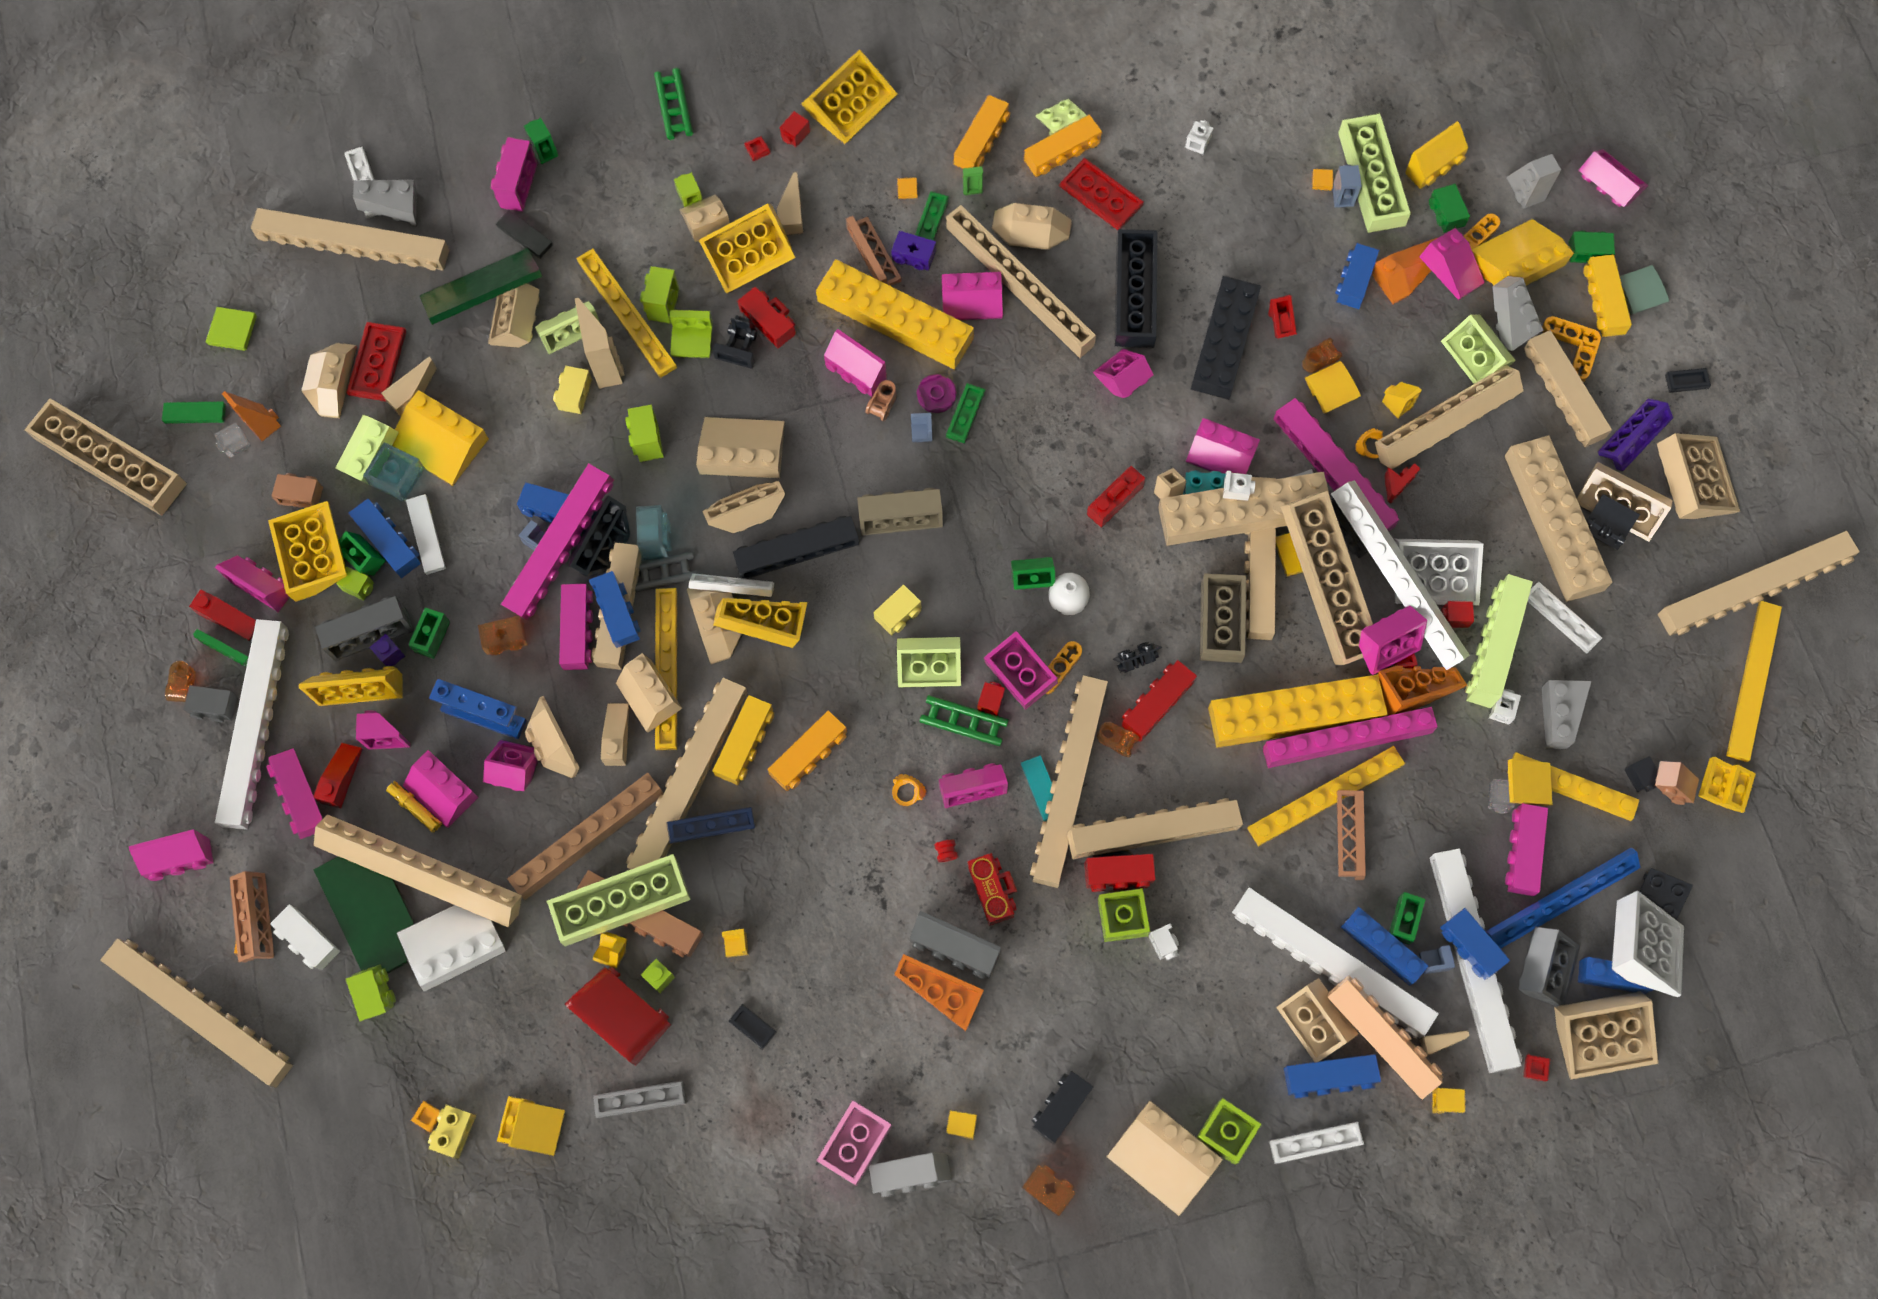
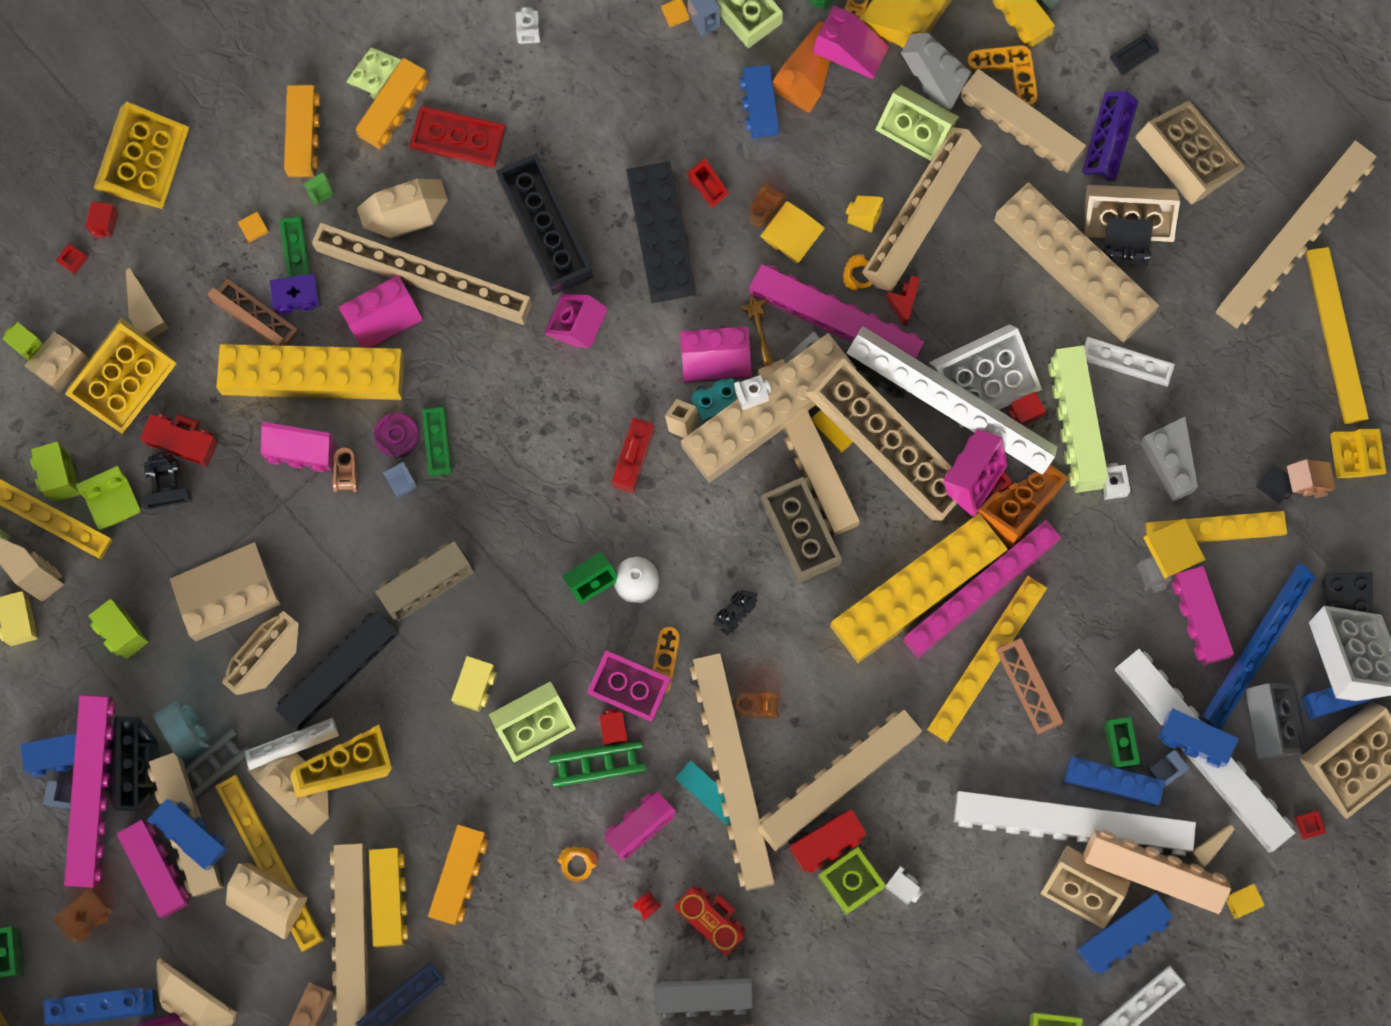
camera: 25 degrees left, 5 degrees up
(615, 735) = (253, 957): tan slope -> none
(1159, 700) = (779, 645): red brick -> none
(1271, 433) = (755, 311): none -> pearl gold piece

